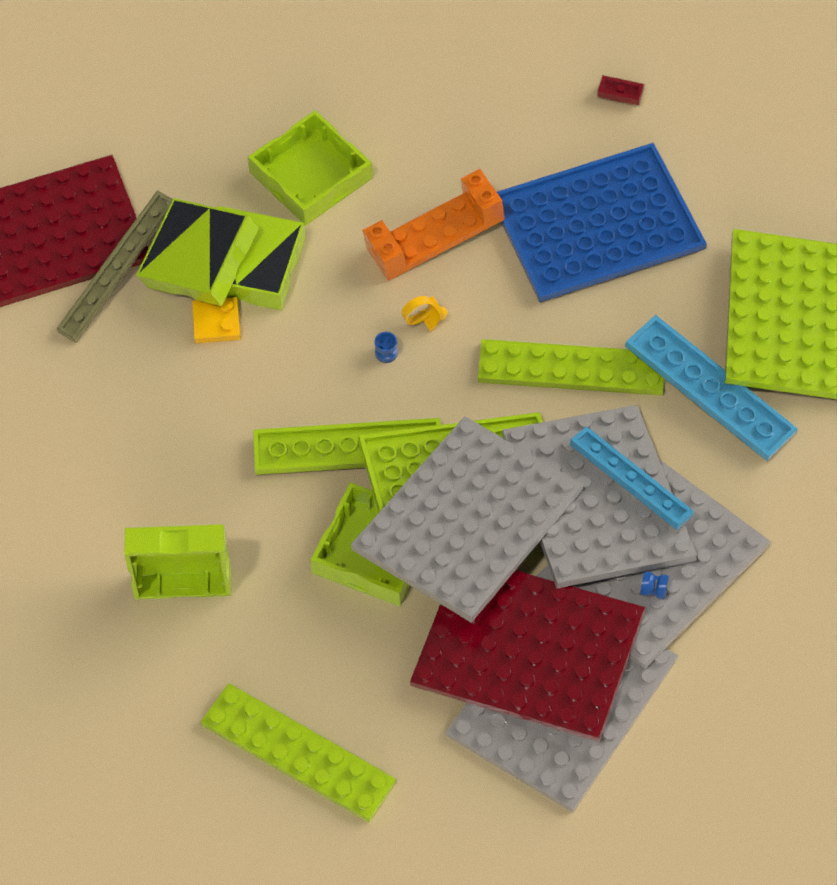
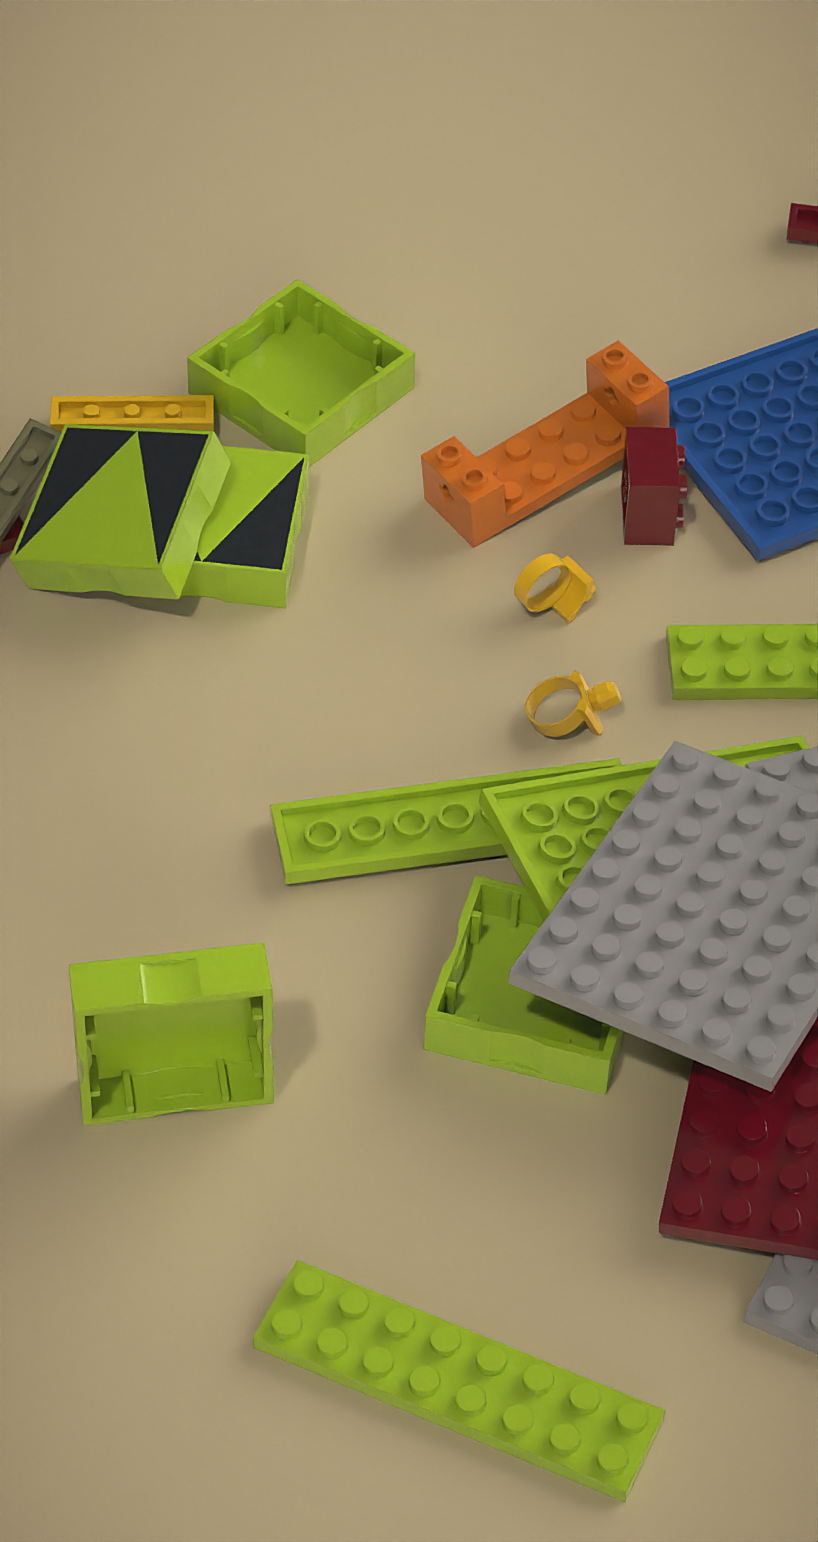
camera: 10 degrees left, 10 degrees down
(215, 186) = (139, 411): none -> yellow plate
(216, 322) = (167, 631): yellow plate -> none
(386, 347) = (494, 650): blue wheel -> none
(430, 387) = (600, 697): none -> yellow piece
(487, 255) = (652, 486): none -> dark red brick

